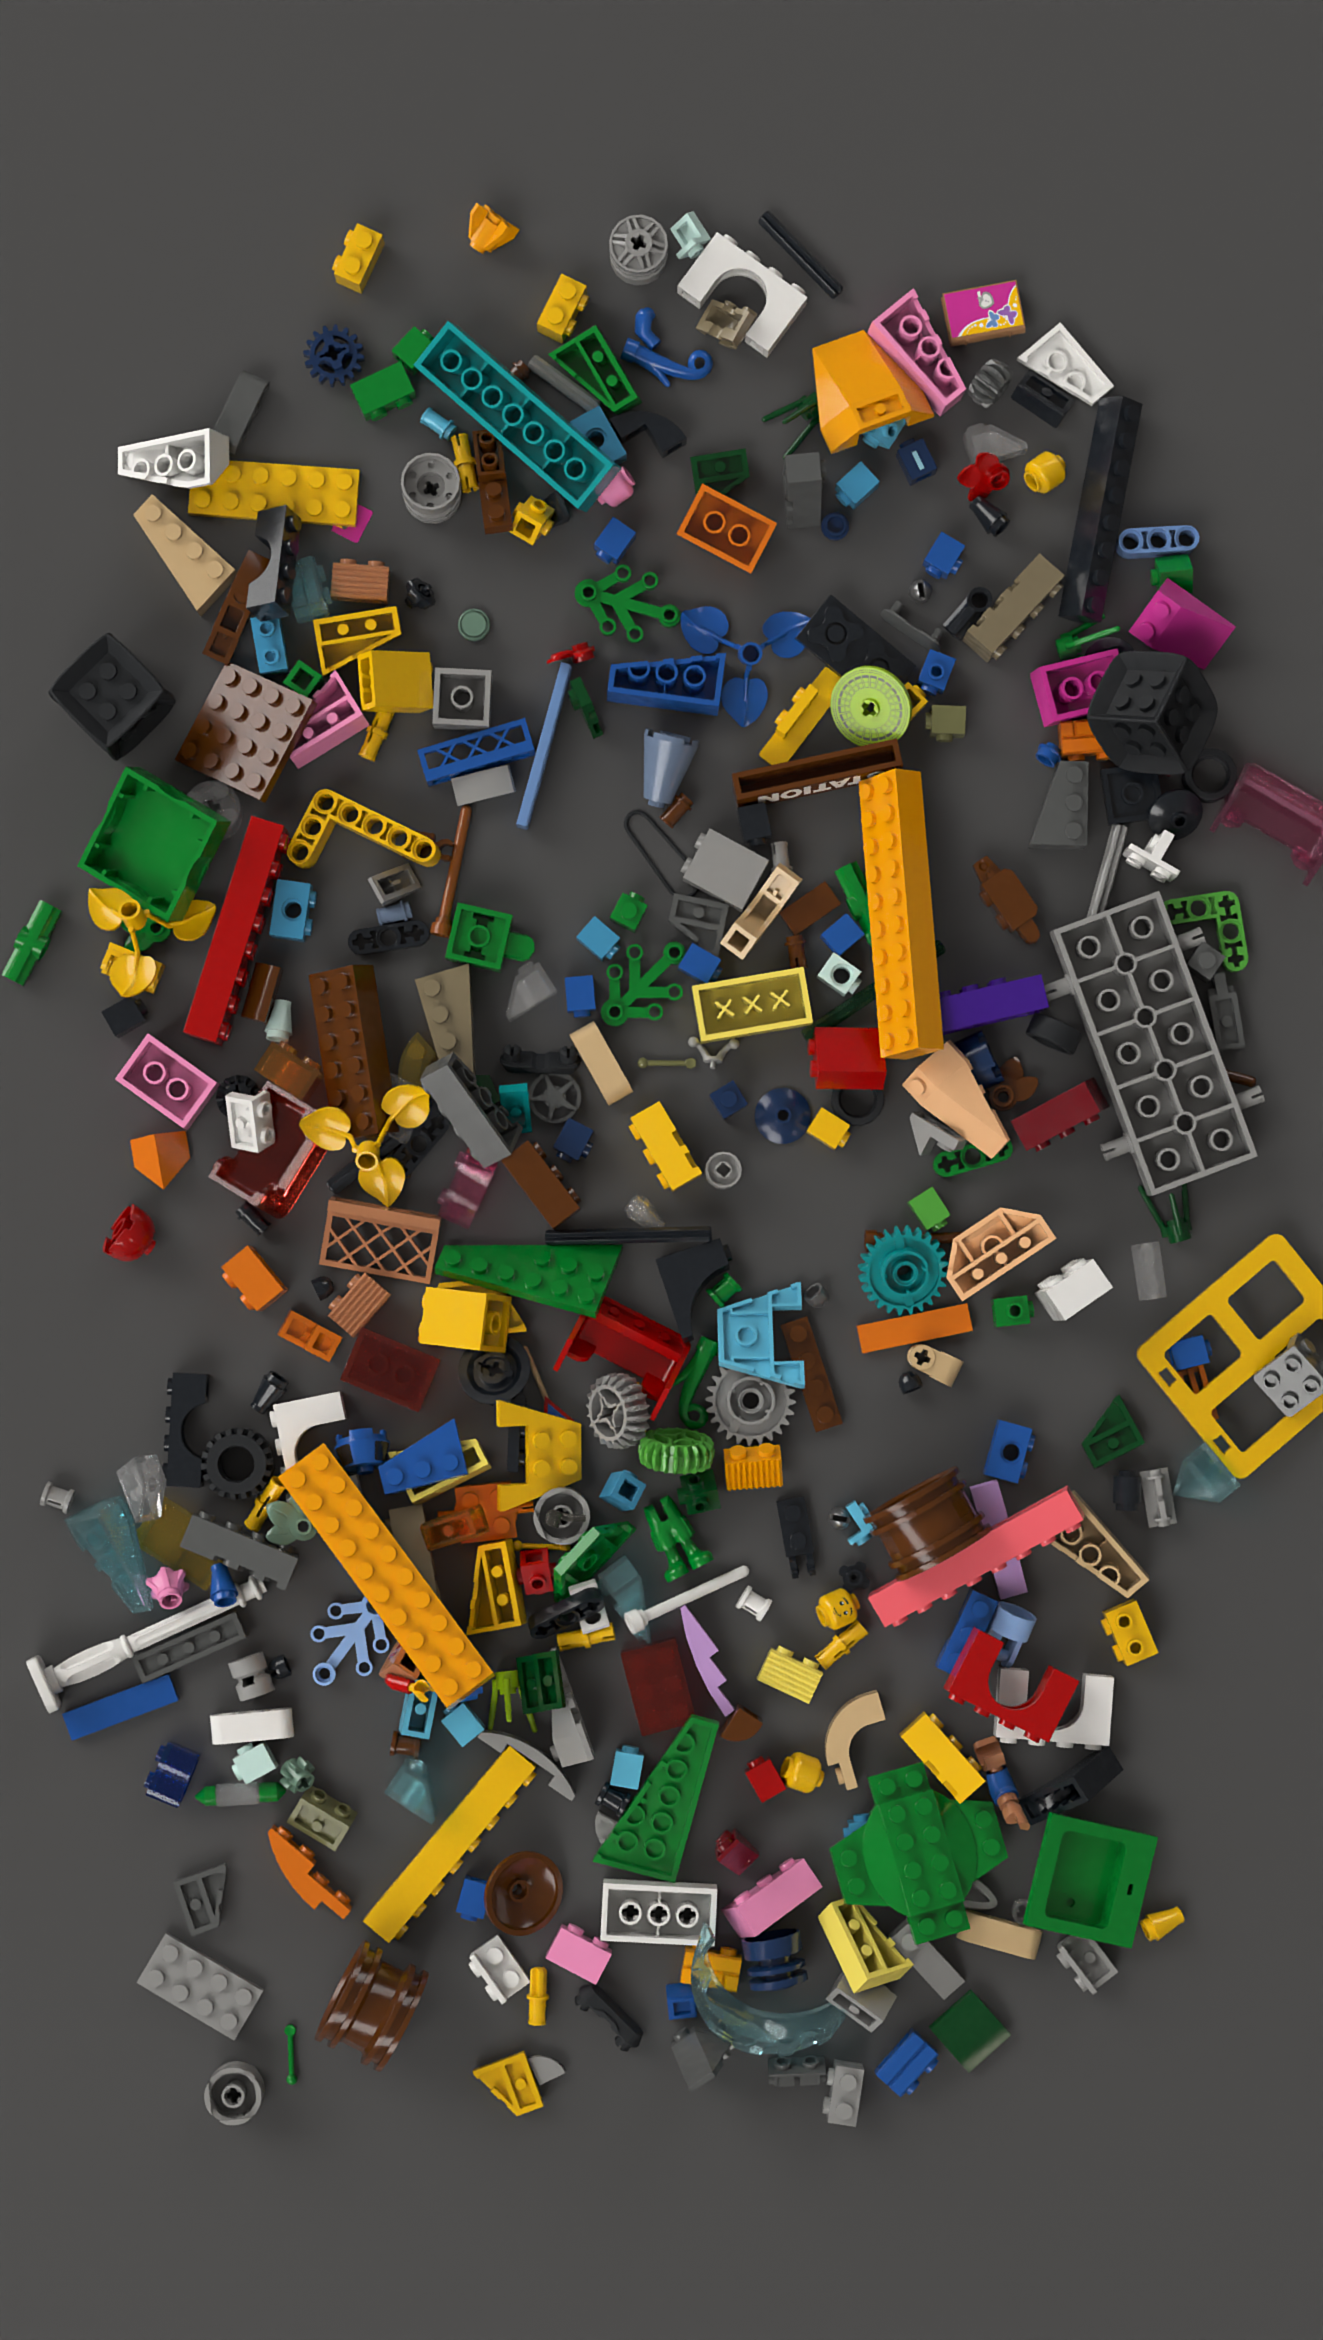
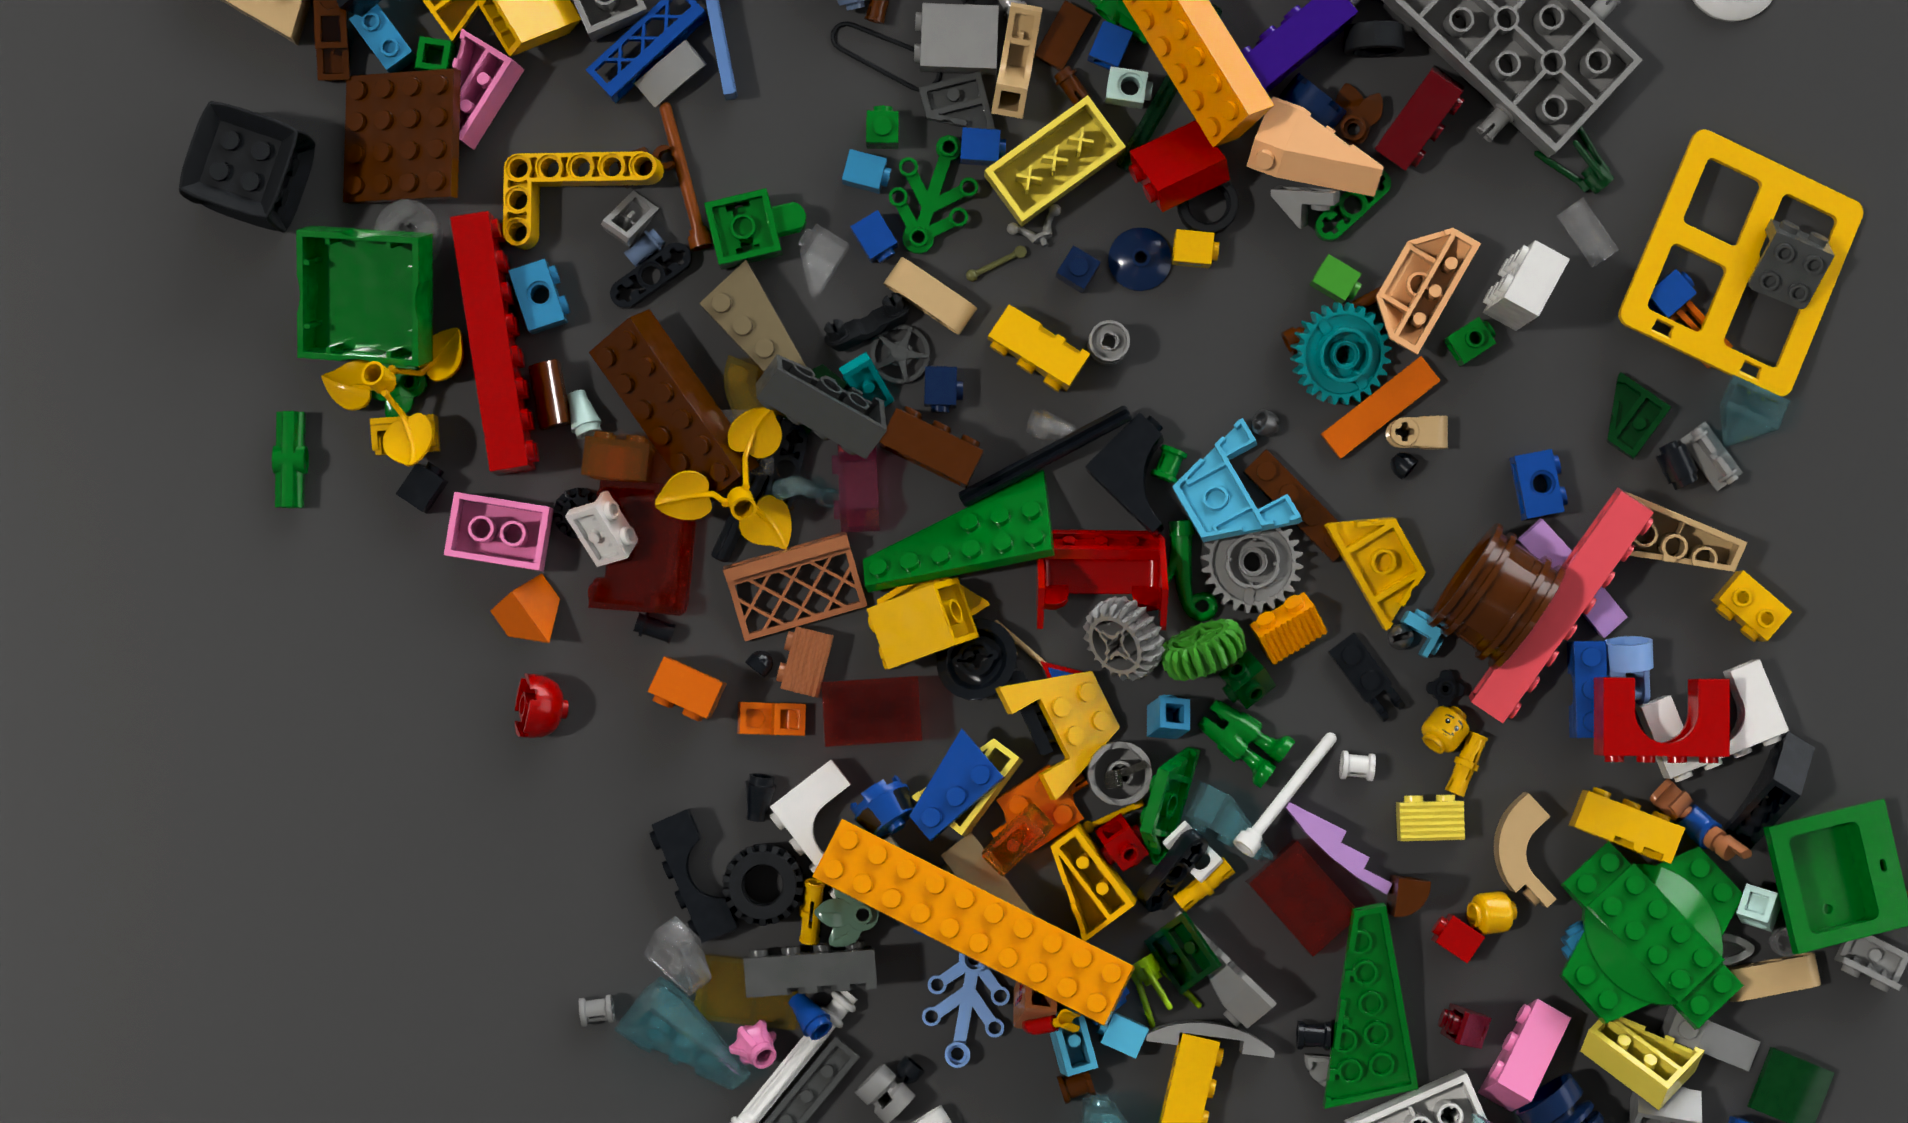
camera: 25 degrees left, 0 degrees up
(376, 734) = (536, 76): yellow pin -> none
(422, 1162) = (797, 485): none -> clear light blue arm
(627, 1767) = (1312, 996): medium azure brick -> none
(851, 1451) = (1379, 562): none -> yellow wing
(1015, 1873) = (1759, 907): none -> light aqua brick

